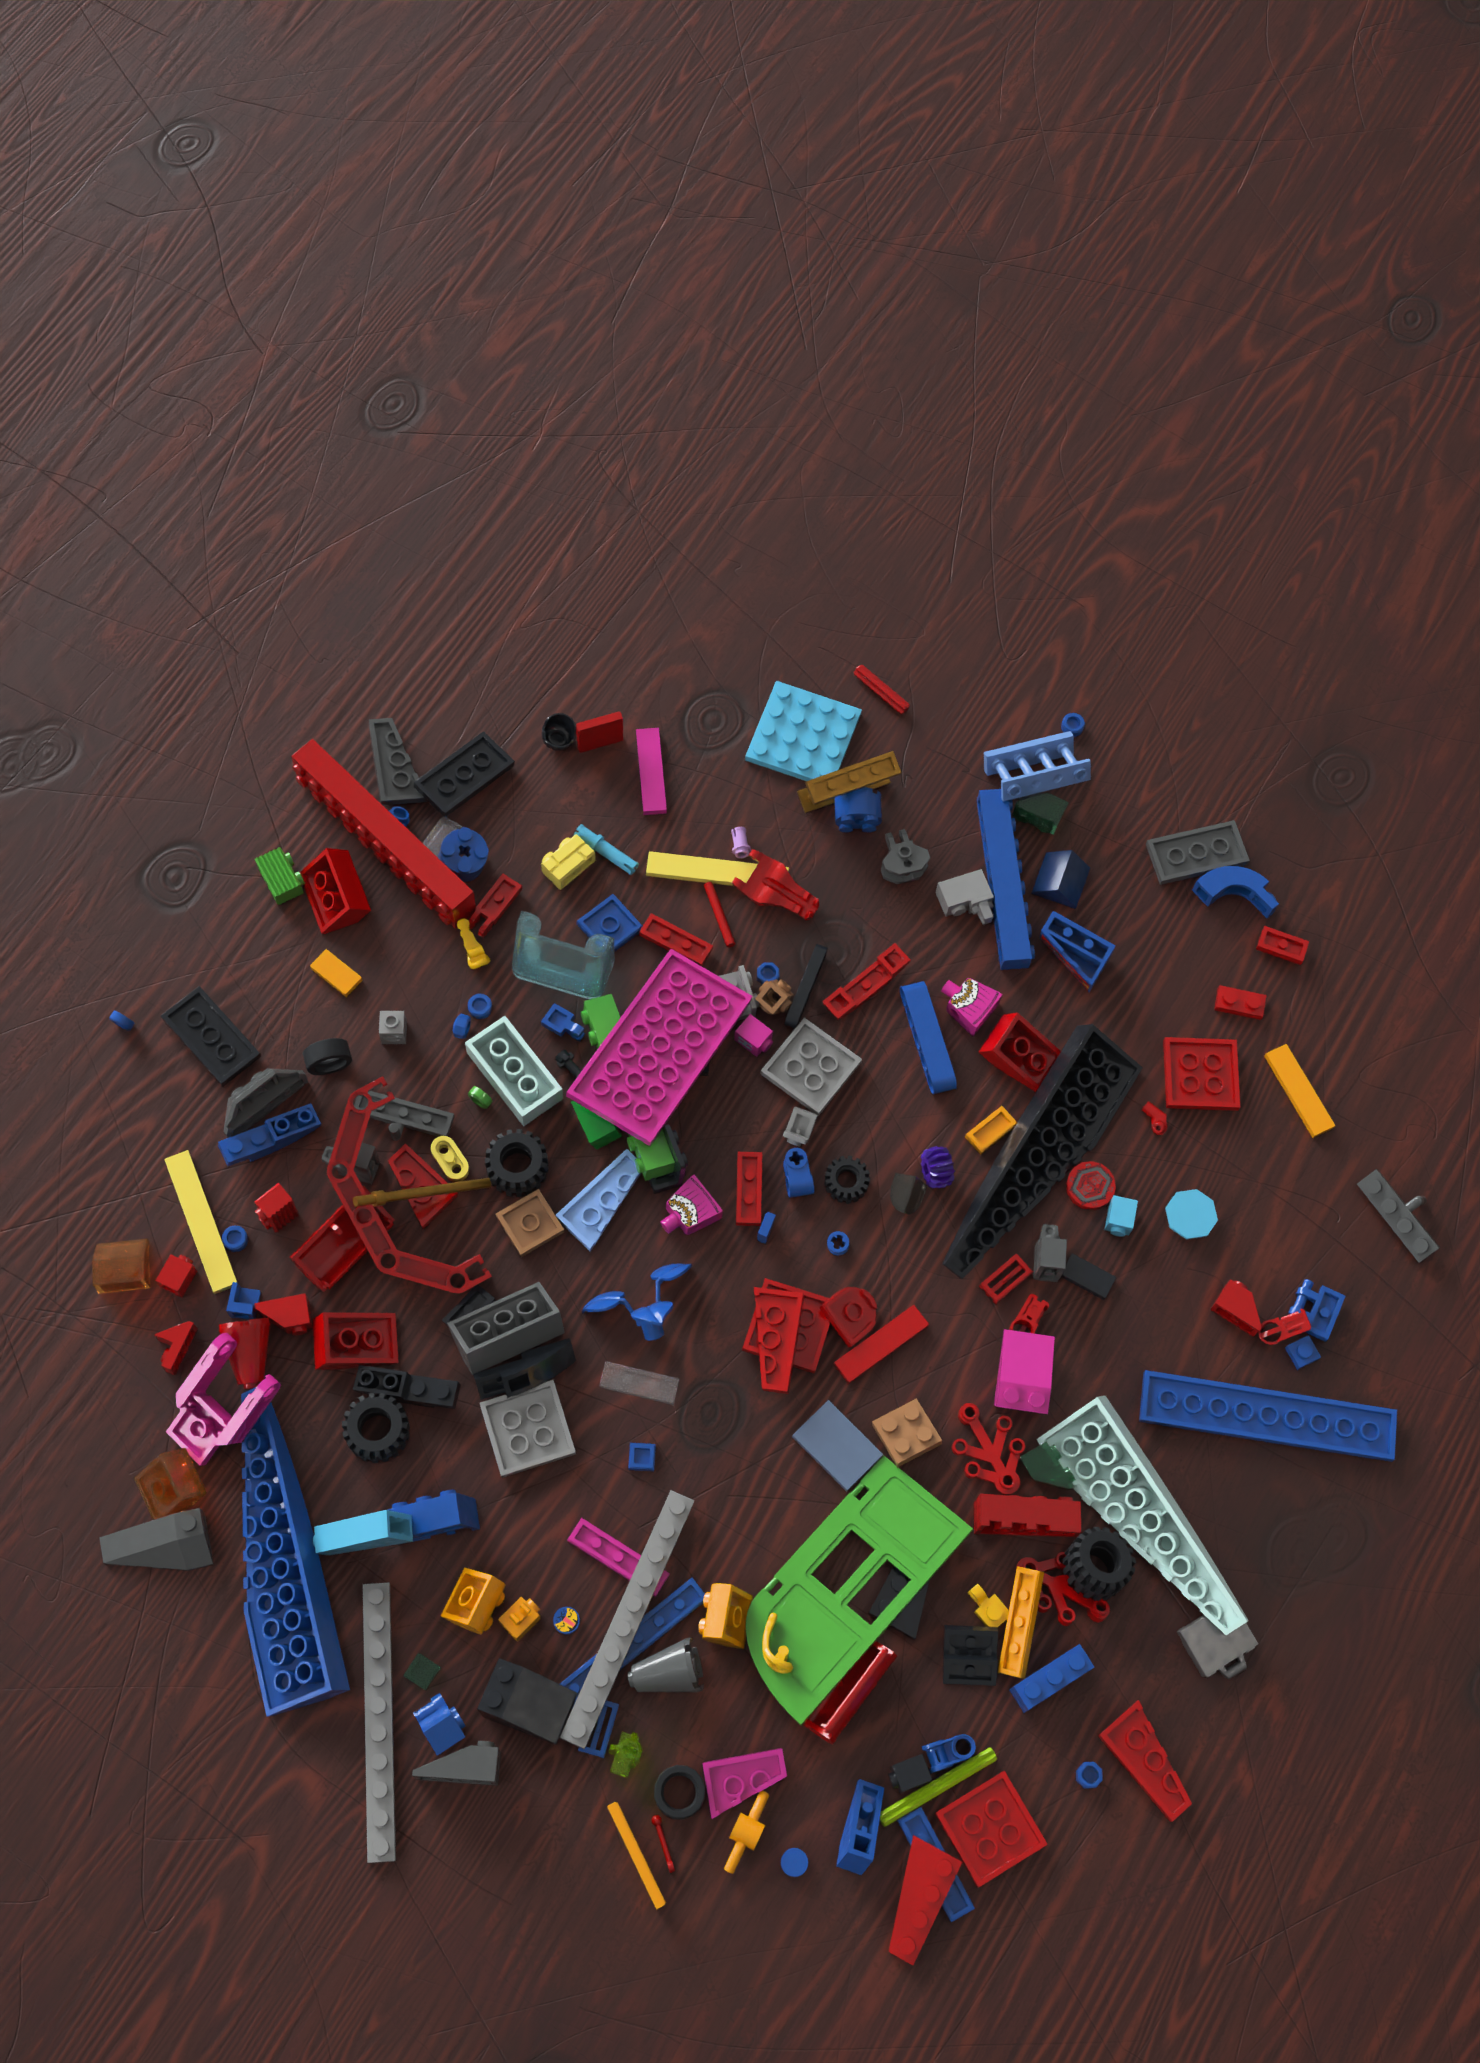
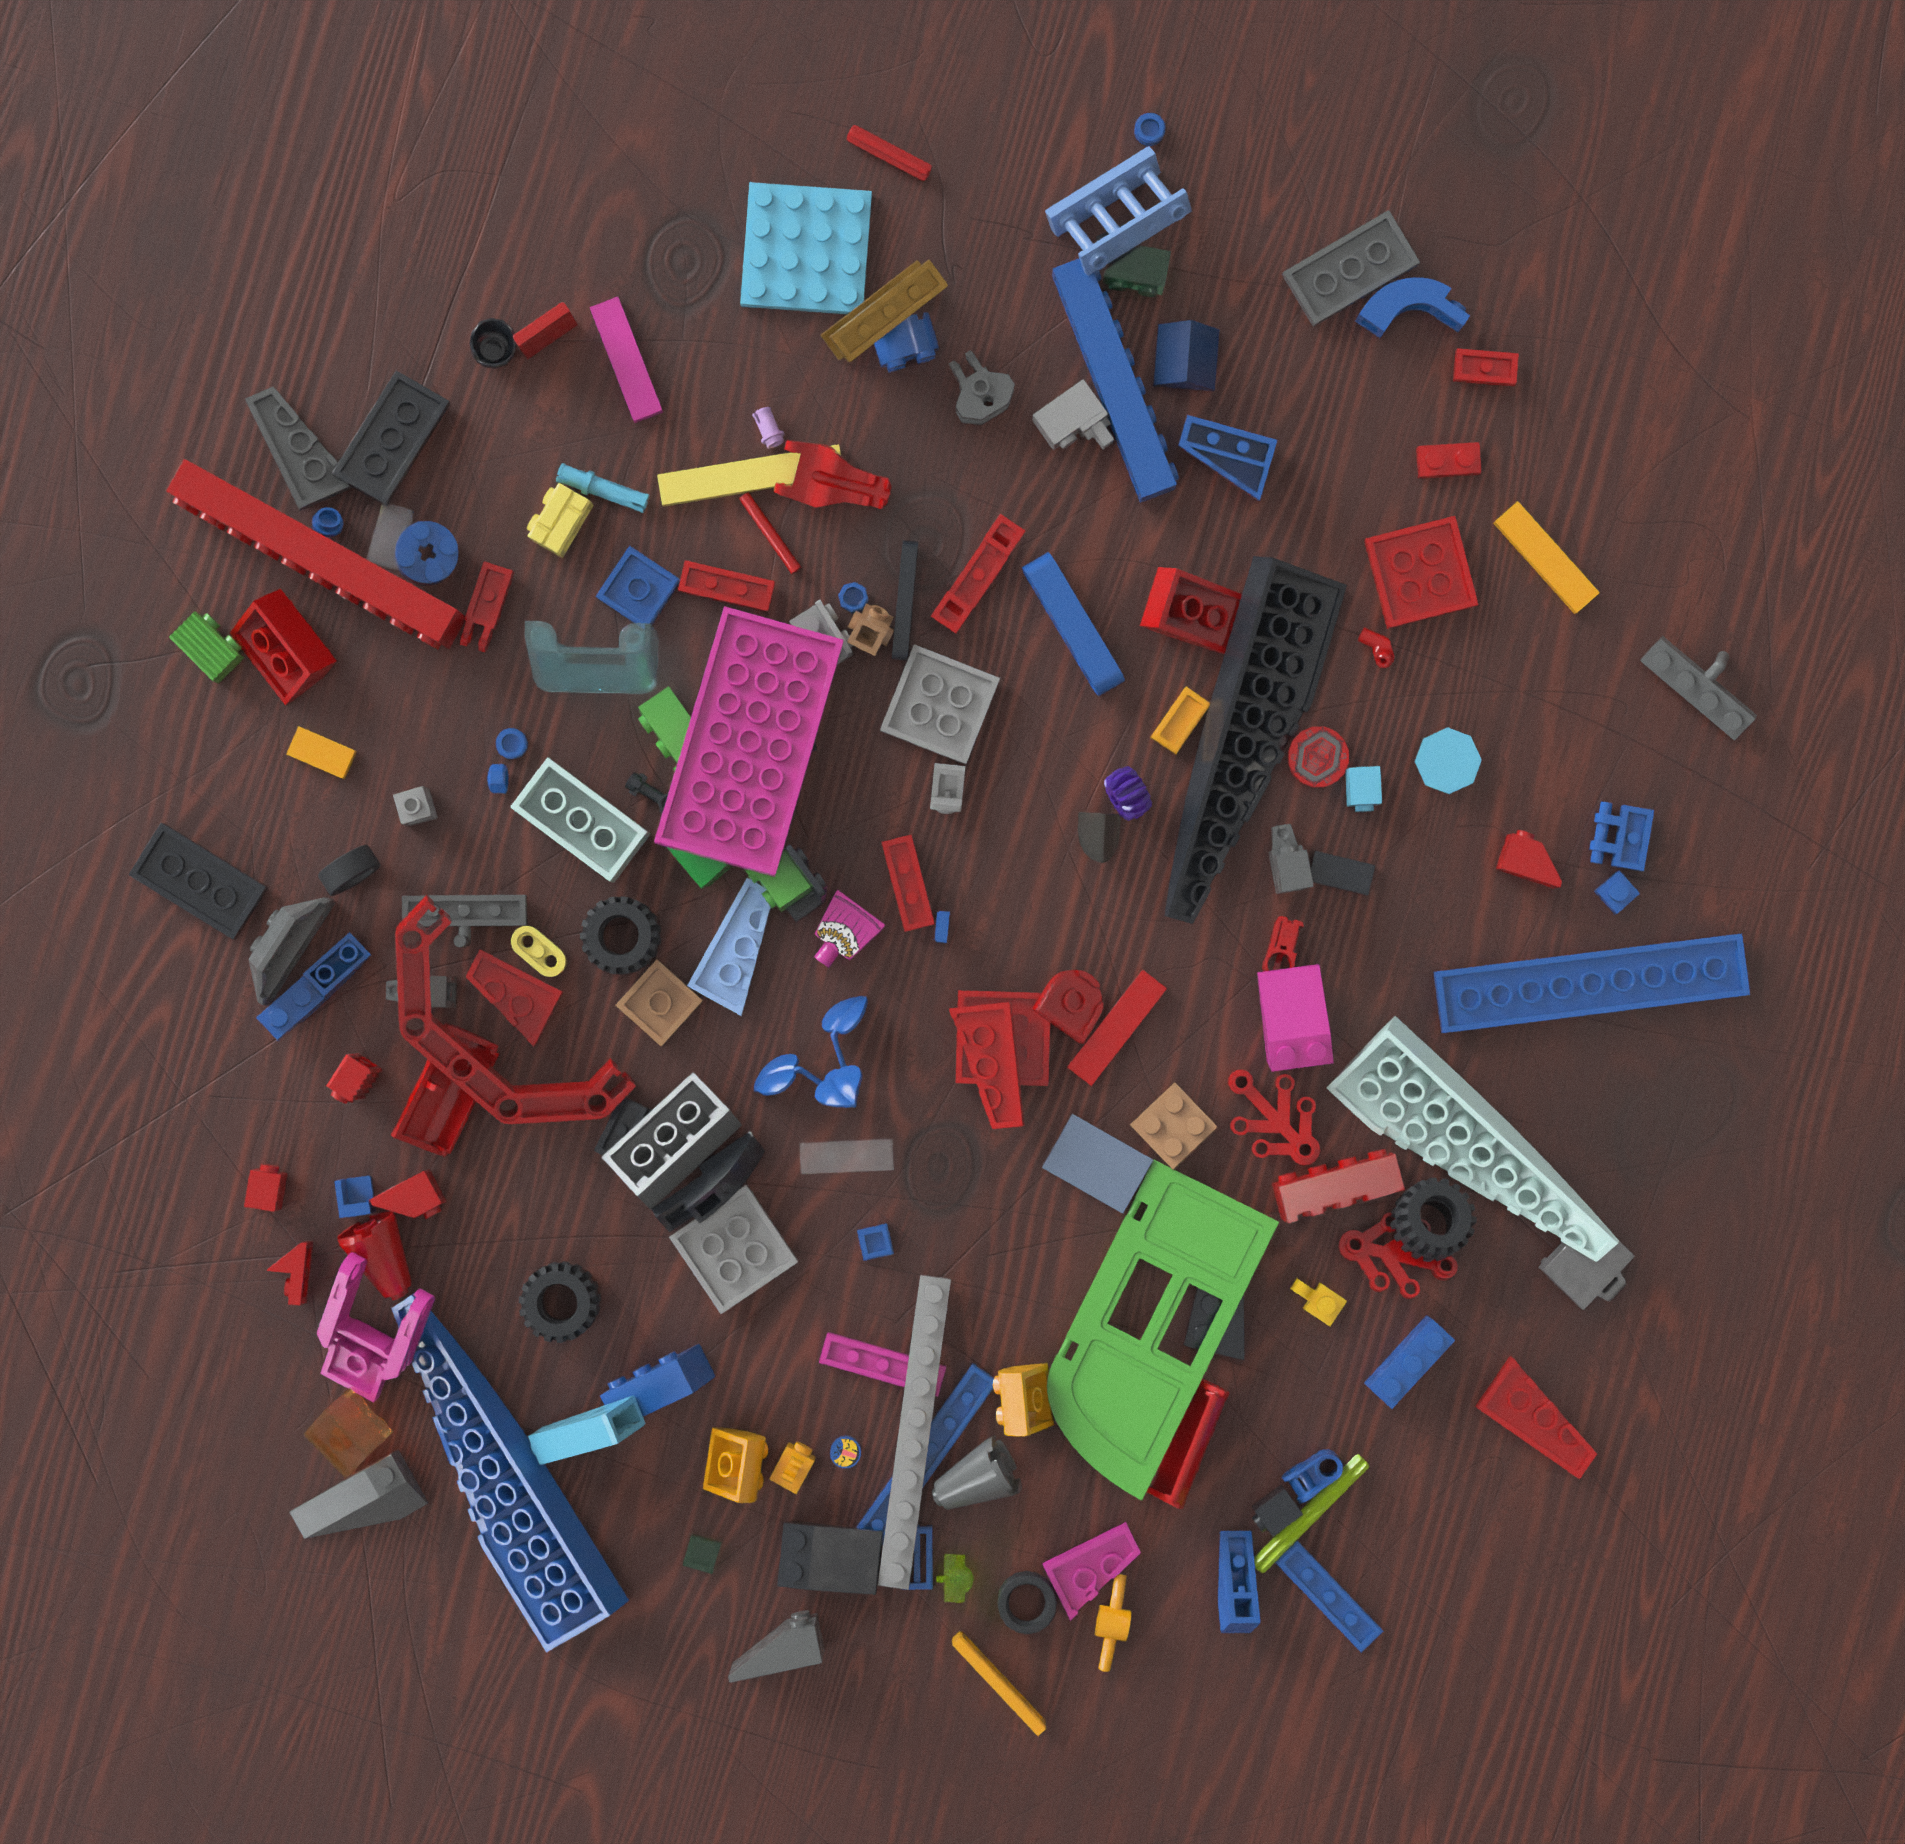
camera: 10 degrees left, 20 degrees up
(121, 1020) = (83, 894): blue tile -> none
(121, 1266) = (196, 1194): clear orange slope -> none
(201, 1221) = (270, 1113): light yellow tile -> none
(235, 1238) = (317, 1122): blue tile -> none
(354, 1340) = (501, 1205): red slope -> none
(379, 1198) = (474, 1043): pearl gold bar -> none
(379, 1723) = (671, 1620): light grey plate -> none
(407, 1388) = (579, 1243): black slope -> none
(440, 1724) = (741, 1611): blue hinge -> none
(475, 951) = (486, 679): yellow piece -> none
(479, 1097) = (550, 864): bright green tile -> none
(561, 1021) = (617, 735): blue plate -> none
(656, 1821) = (1010, 1637): red hinge -> none
(754, 1036) = (859, 686): dark pink brick -> none
(777, 1662) = (1098, 1439): yellow piece -> none
(794, 1862) = (1173, 1638): blue tile -> none
(798, 1177) = (965, 854): blue piece -> none
(845, 1241) = (1040, 912): blue bush -> none
(849, 1165) = (1038, 826): black tyre -> none
(923, 1892) = (1323, 1632): red wing -> none
(970, 1655) = (1310, 1360): black slope -> none
(971, 1003) = (1114, 563): dark pink torso -> none
(990, 1292) = (1229, 926): red tile -> none
(991, 1829) = (1380, 1543): red plate -> none
(1020, 1622) = (1359, 1310): light orange tile -> none
(1046, 1469) = (1346, 1123): clear green slope -> none
(1089, 1775) = (1475, 1453): blue tile -> none
(1289, 1326) = (1593, 869): red piece -> none

